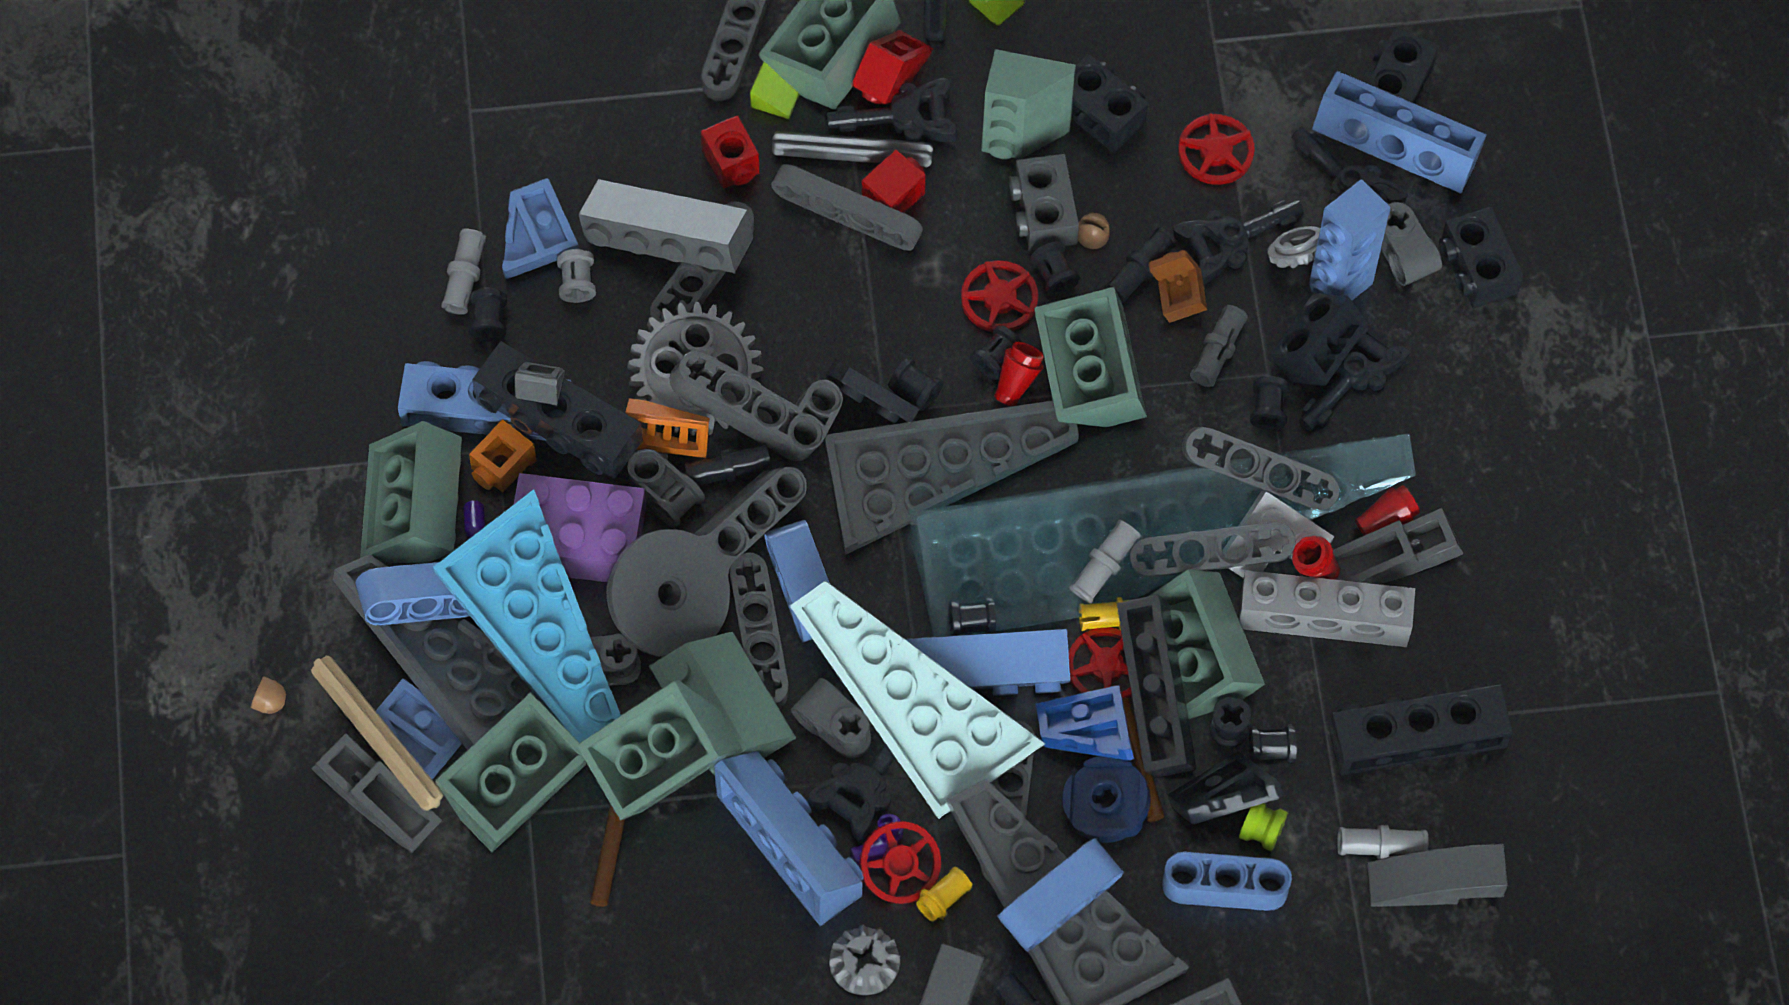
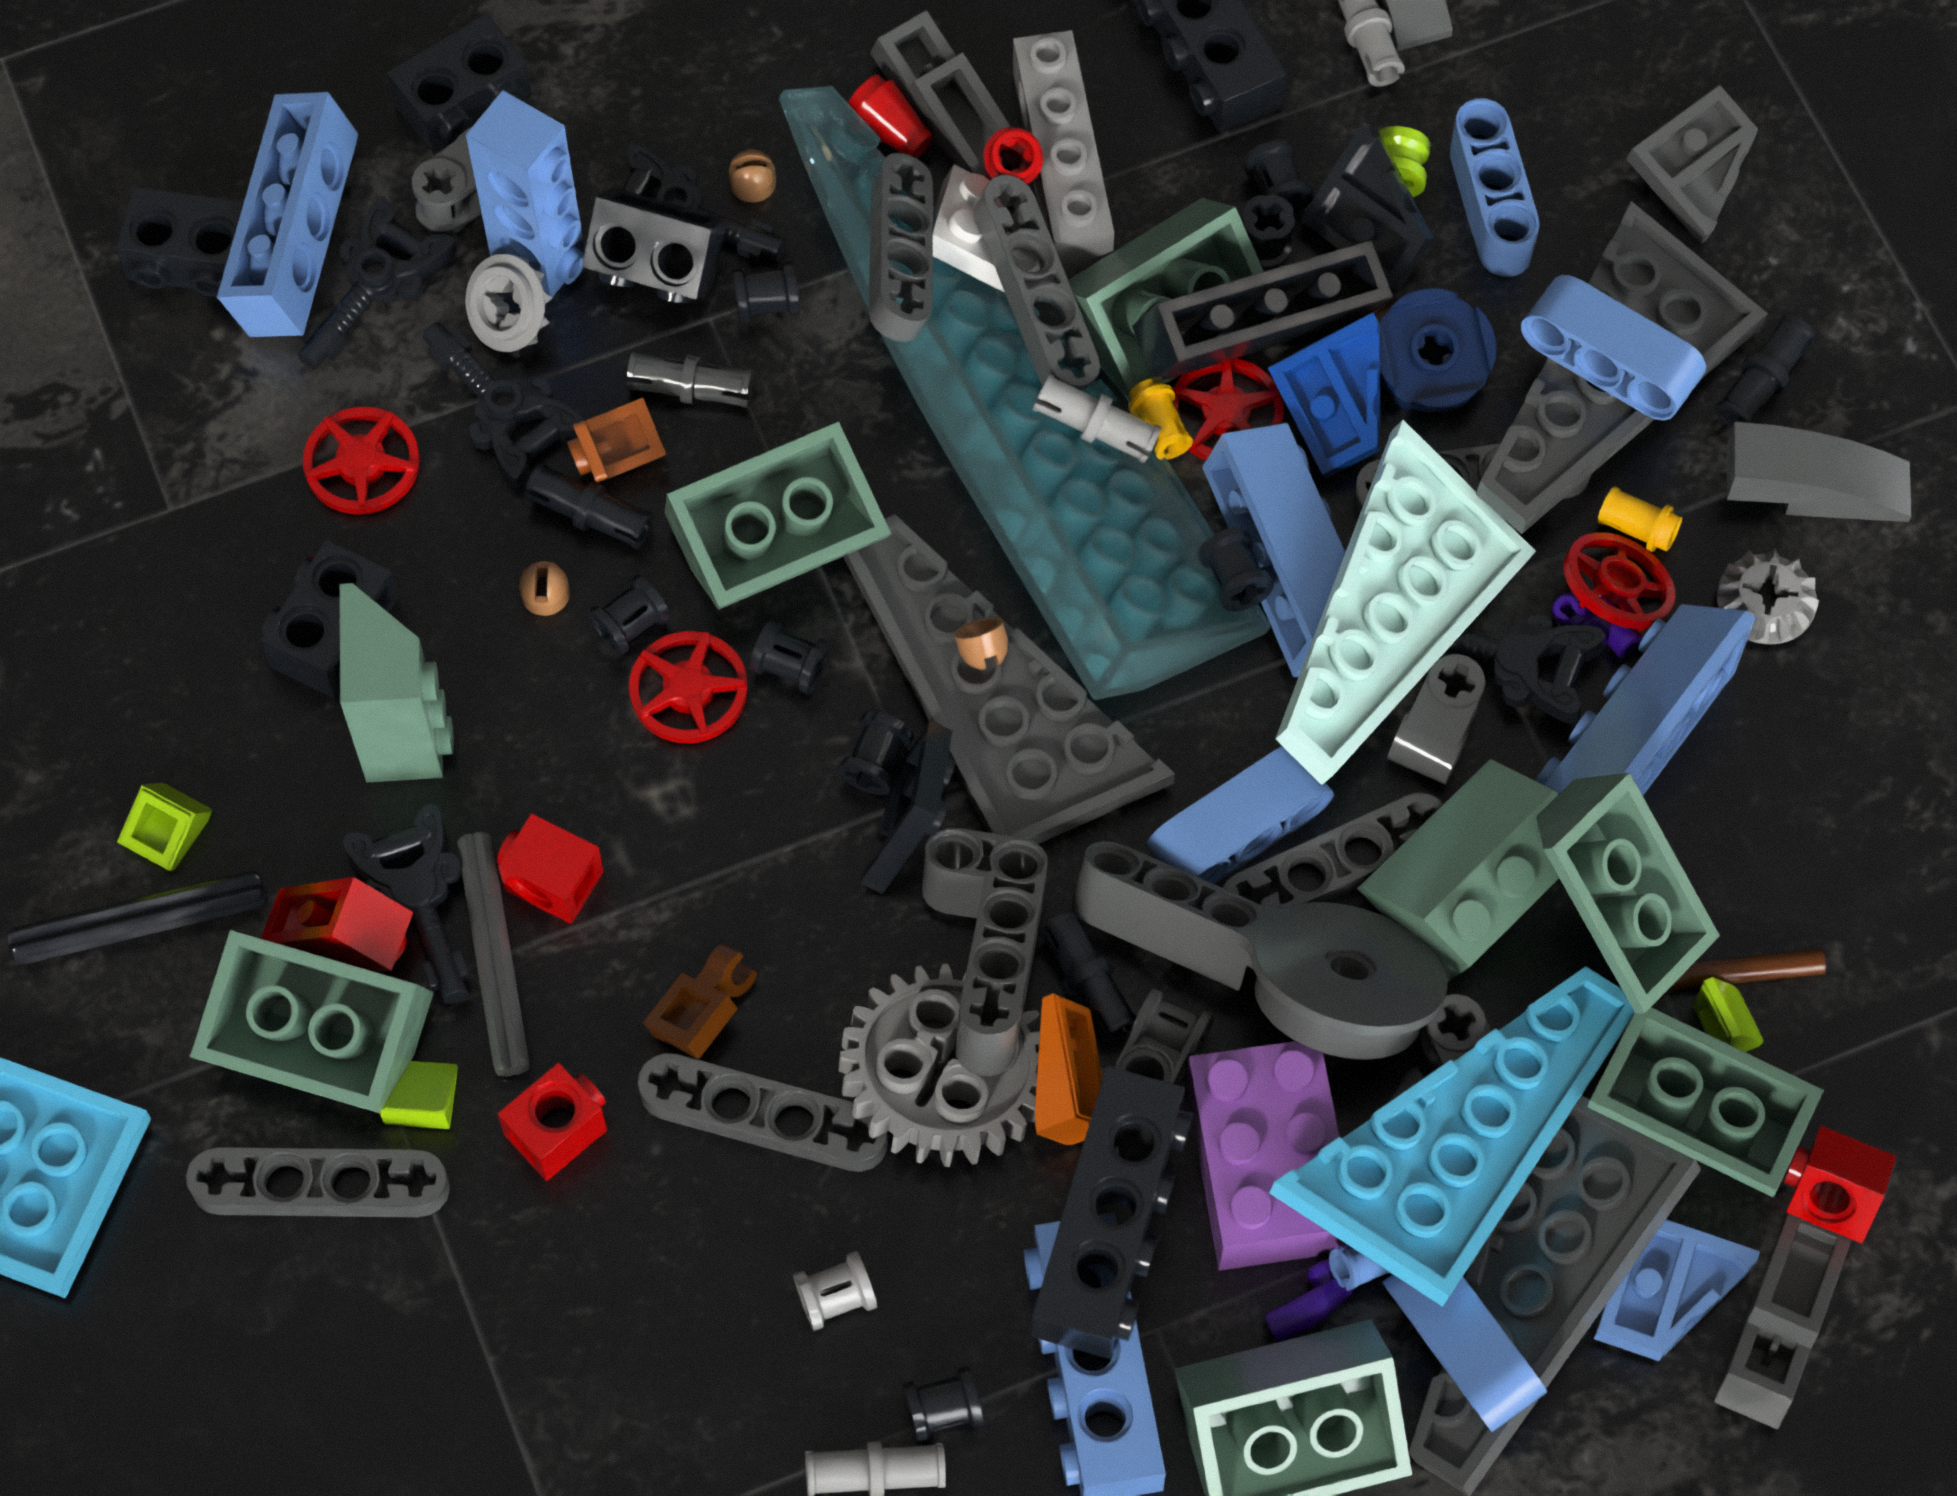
camera: 105 degrees left, 0 degrees up
(377, 733) = (1701, 1336): tan axle -> none
(443, 847) = (1838, 1183): none -> red brick
(501, 445) = (1180, 1280): orange brick -> none
(535, 229) = (768, 1380): medium blue wing -> none
(539, 383) = (1090, 1227): dark grey slope -> none
(577, 829) = (1726, 1015): none -> lime slope
(666, 226) = (728, 1161): brick -> none
(780, 244) = (699, 1008): none -> reddish brown plate
(847, 207) = (603, 928): dark grey beam -> none
(965, 452) = (982, 640): none -> medium nougat hinge
(1018, 371) = (820, 609): red cone -> none
(1050, 202) = (513, 638): dark grey brick -> none
(1360, 417) = (752, 176): none -> medium nougat hinge

